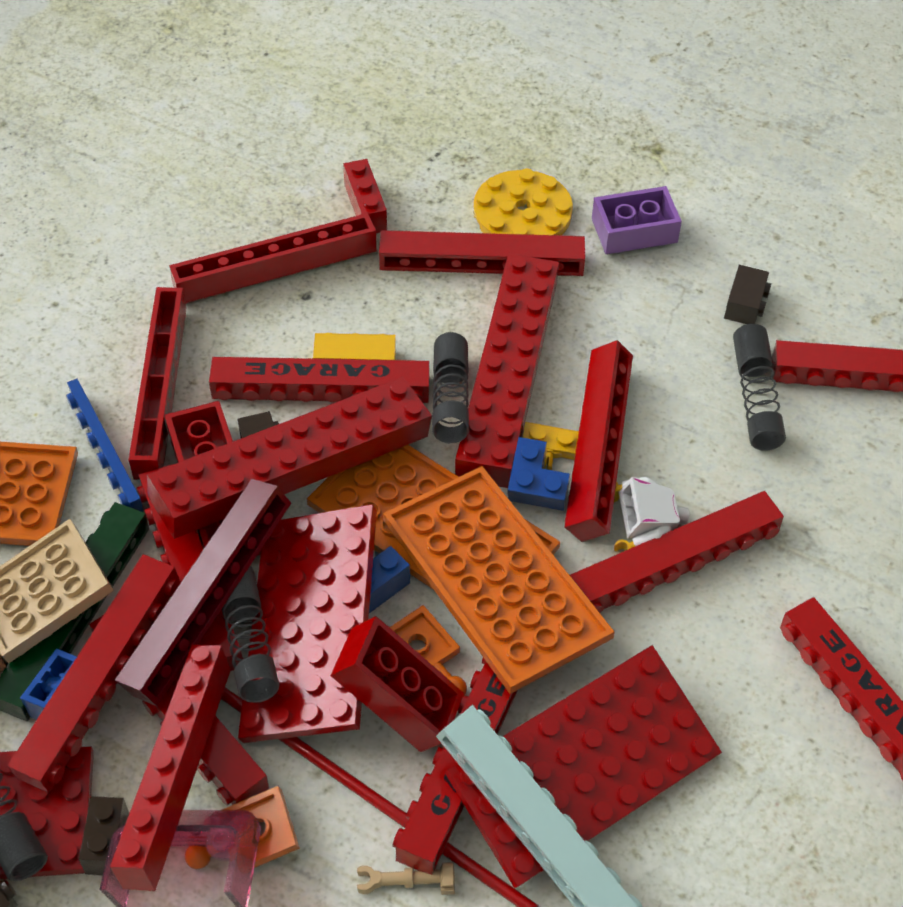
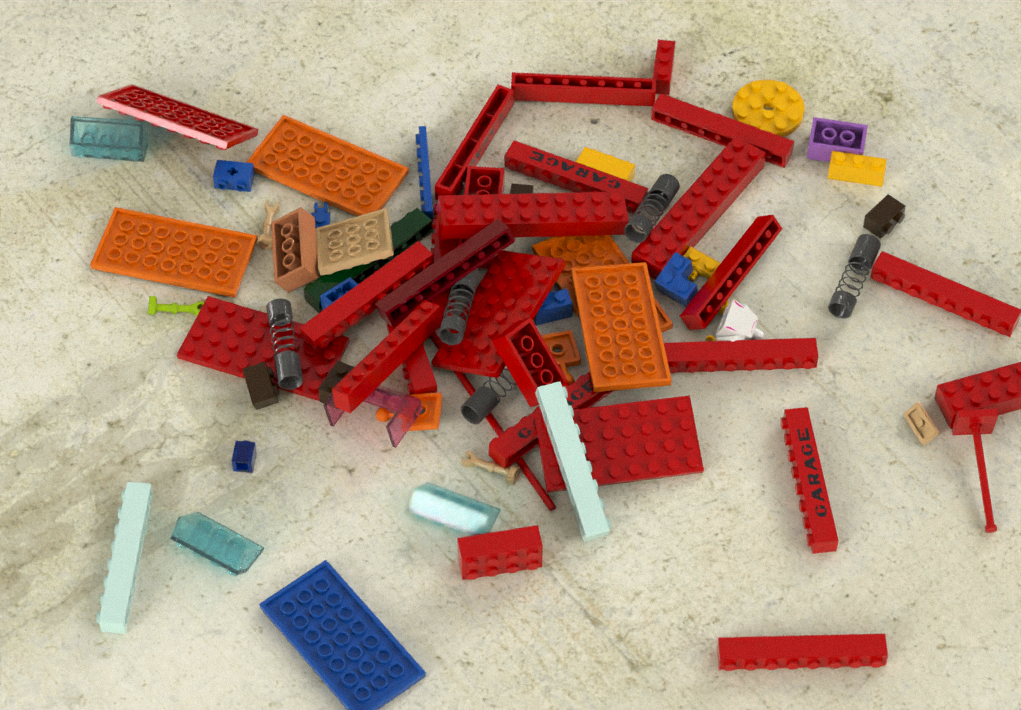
camera: 25 degrees right, 0 degrees up
(350, 775) = (483, 401): none -> dark grey piece
(678, 245) = (857, 168): none -> yellow brick

